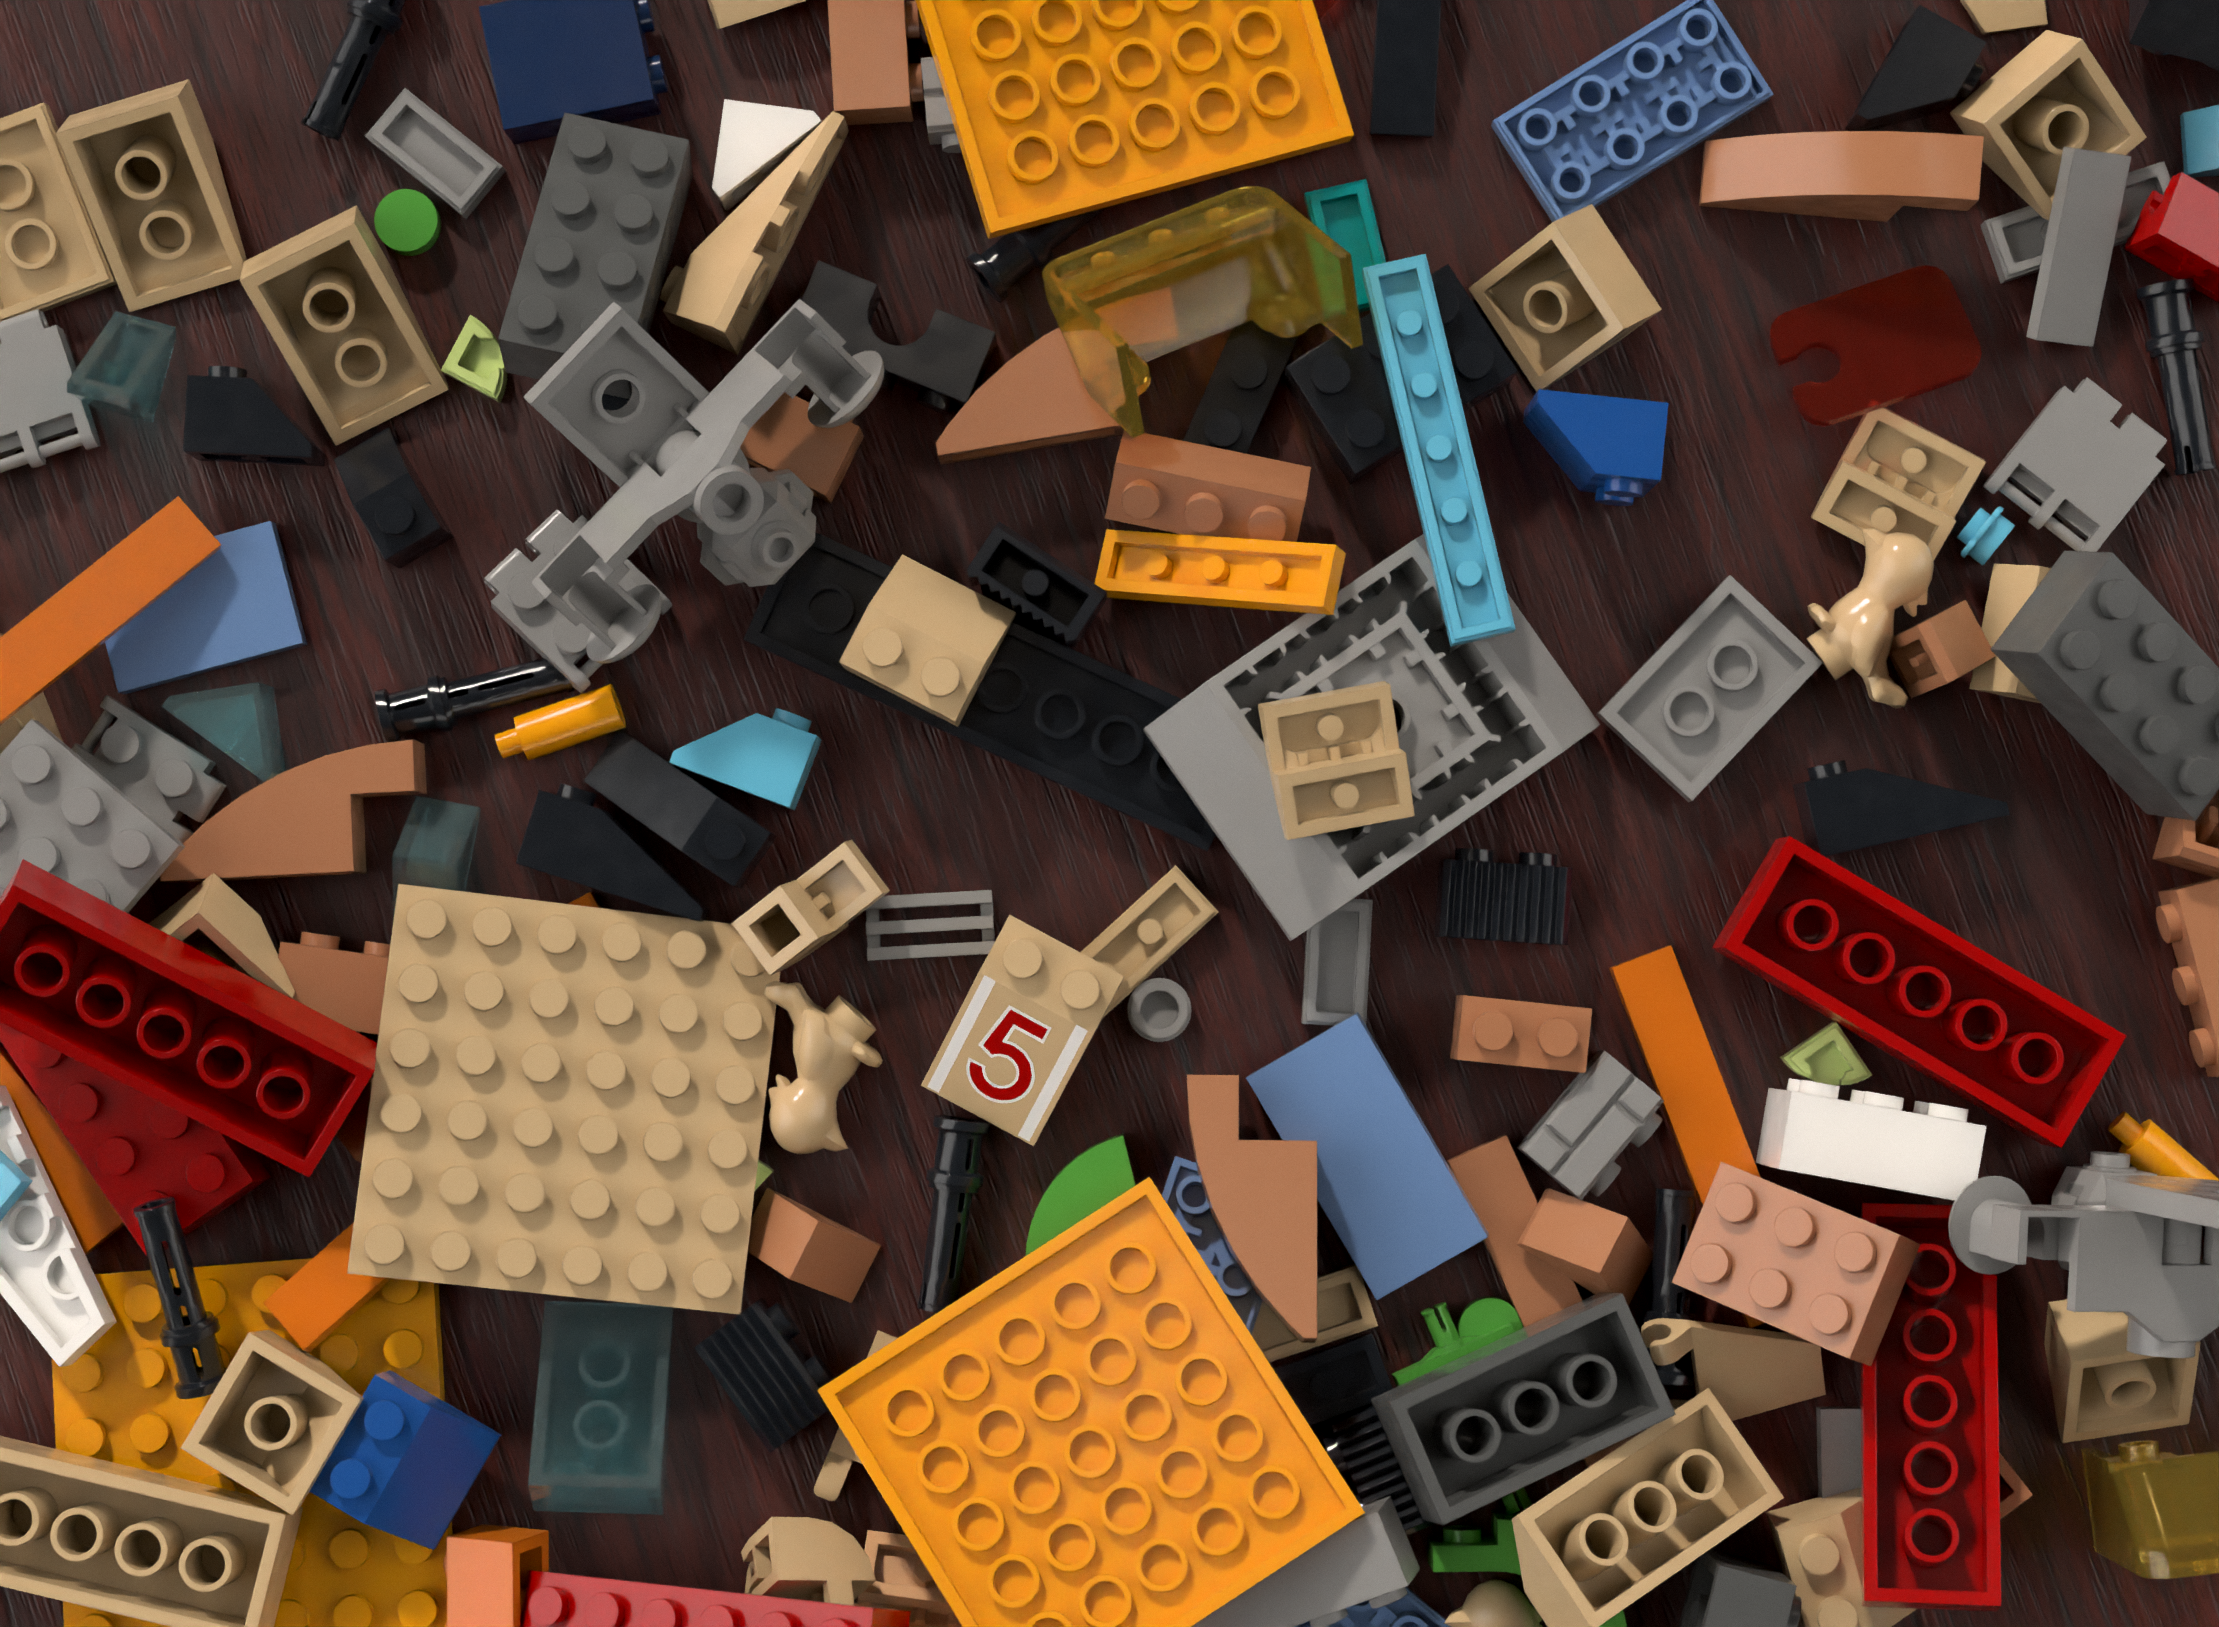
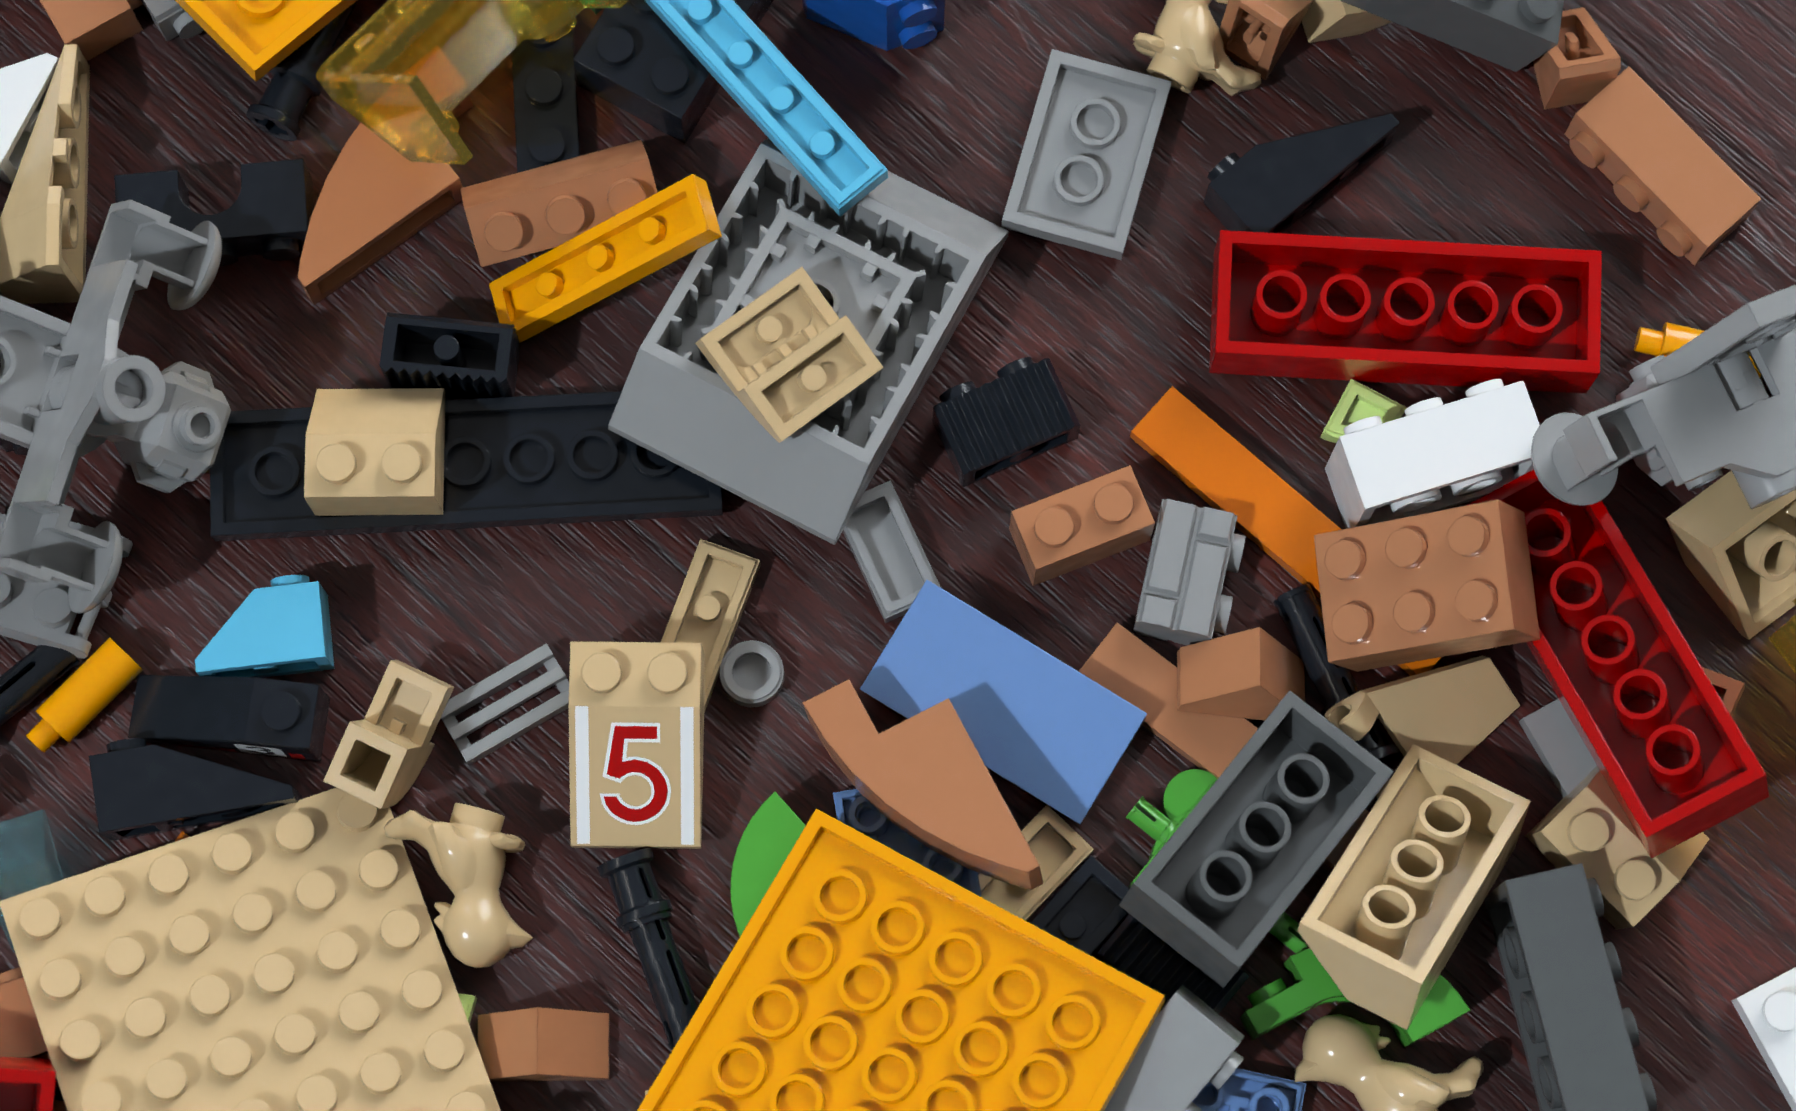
camera: 30 degrees left, 10 degrees down
(790, 441) = (193, 335): nougat brick -> none

